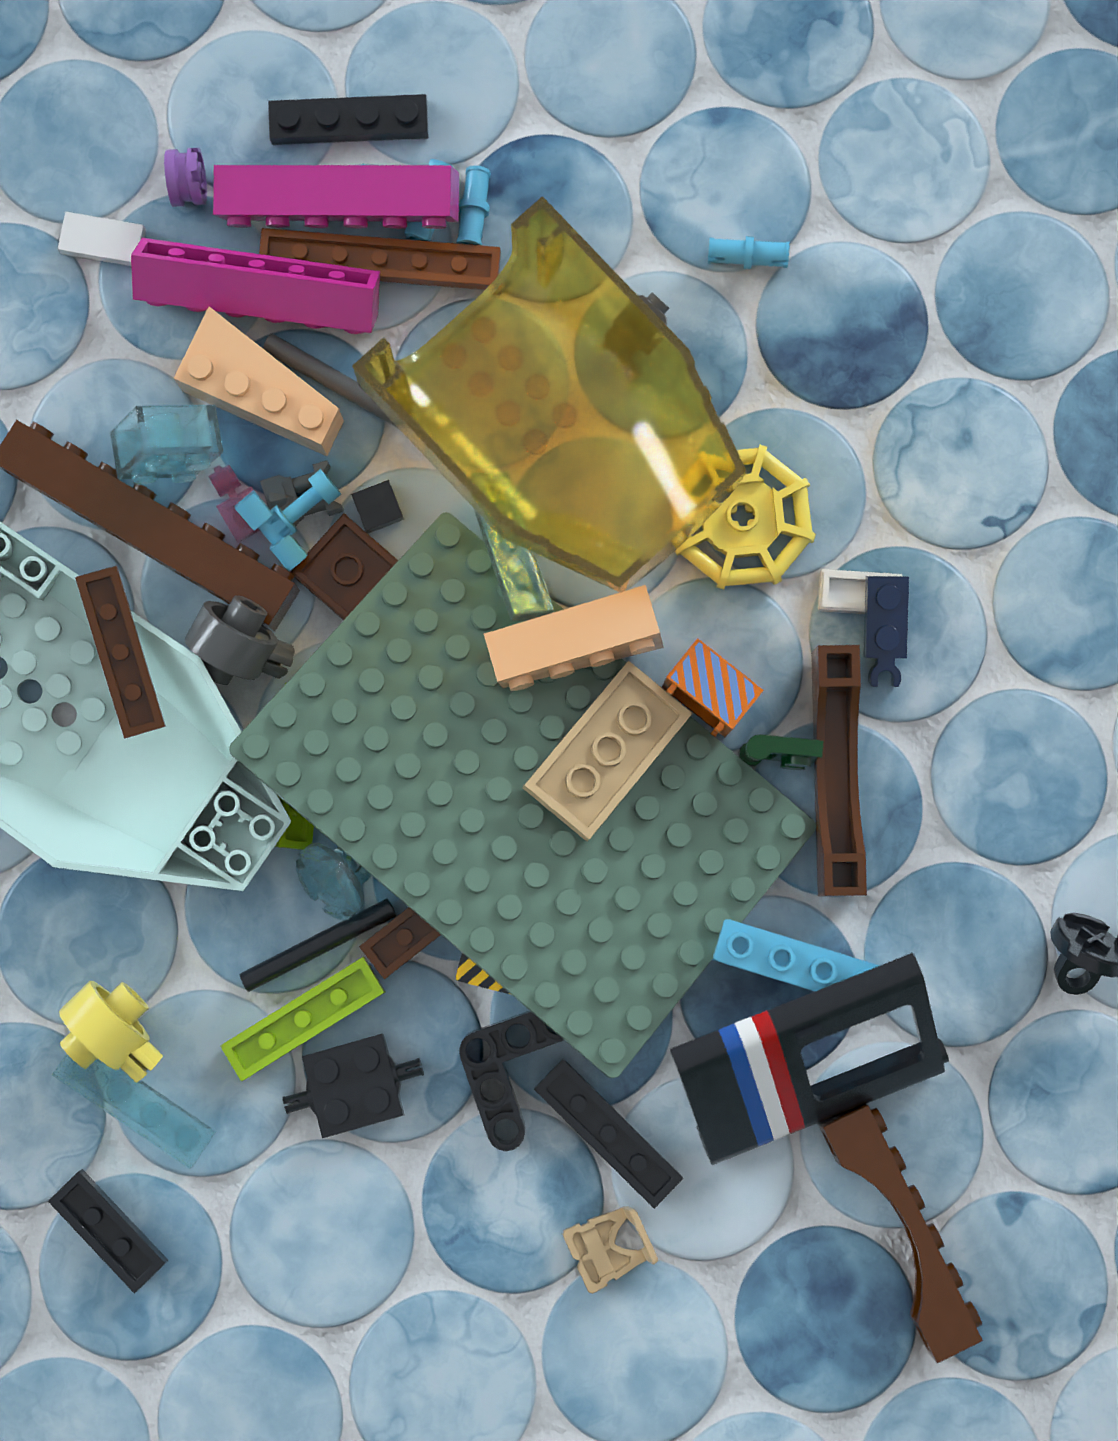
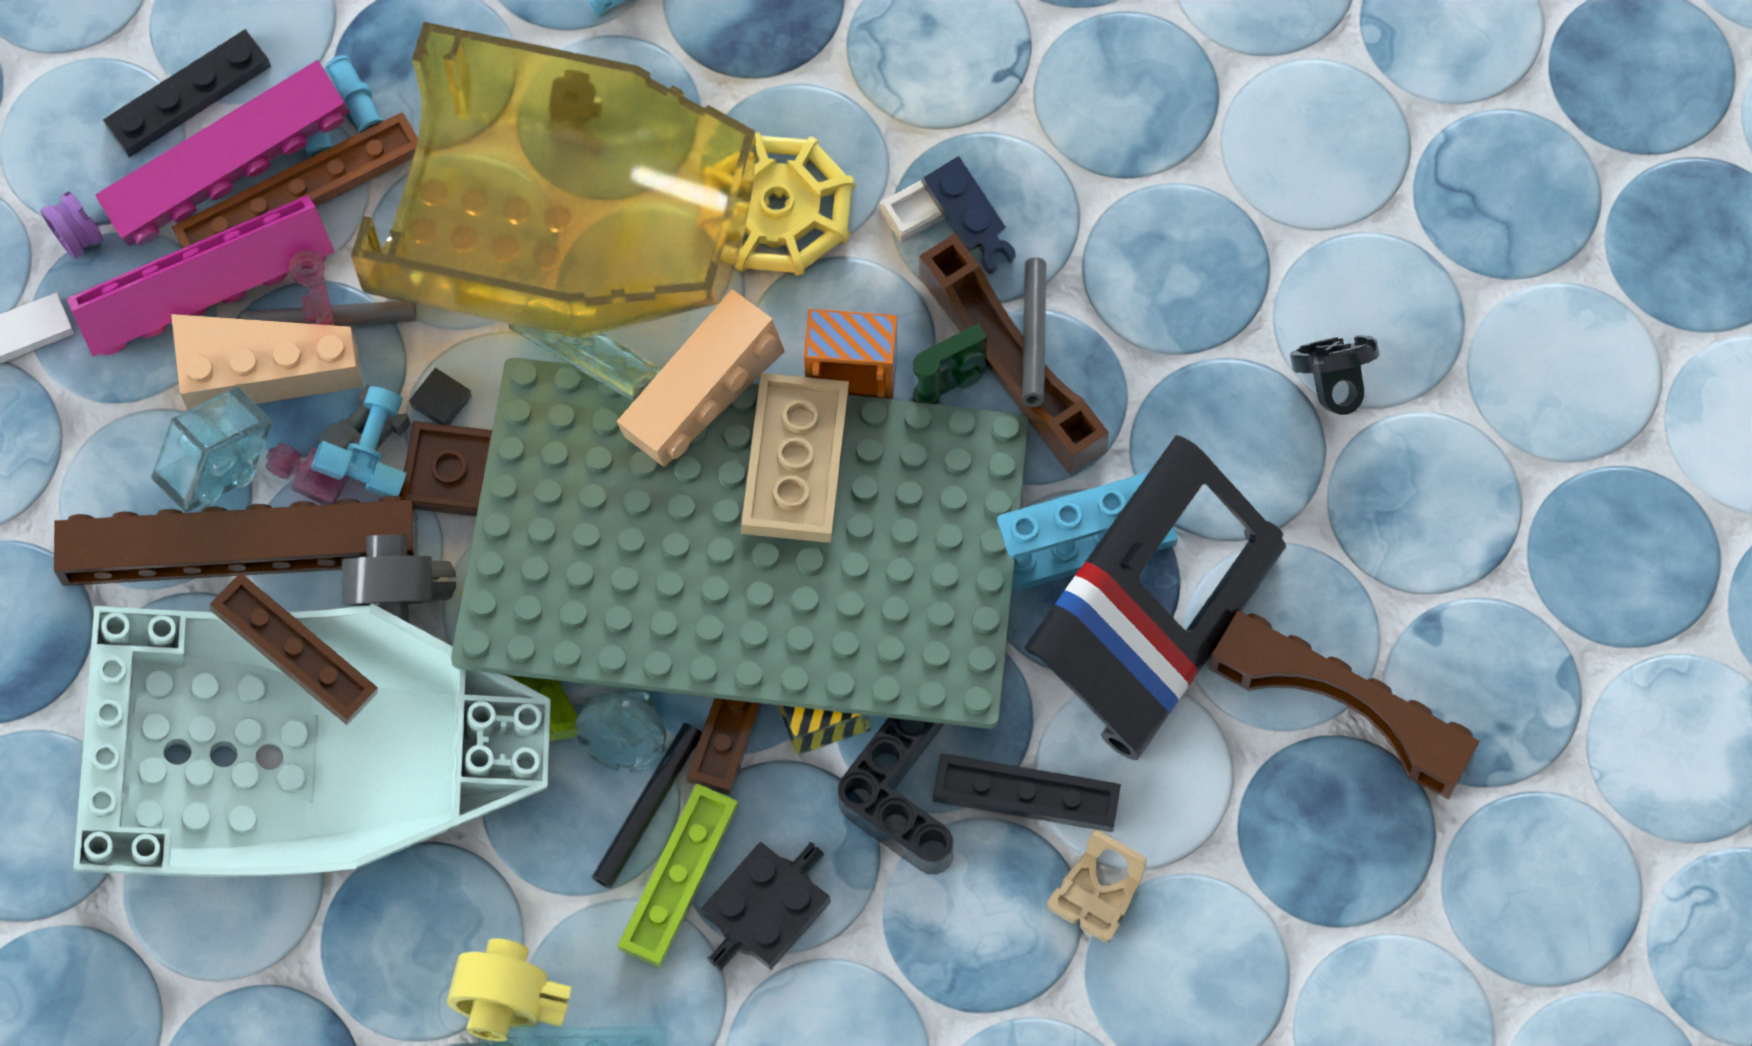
camera: 30 degrees left, 15 degrees down
(327, 370) = (317, 303): none -> clear pink plate
(867, 764) = (1034, 332): none -> dark grey piece

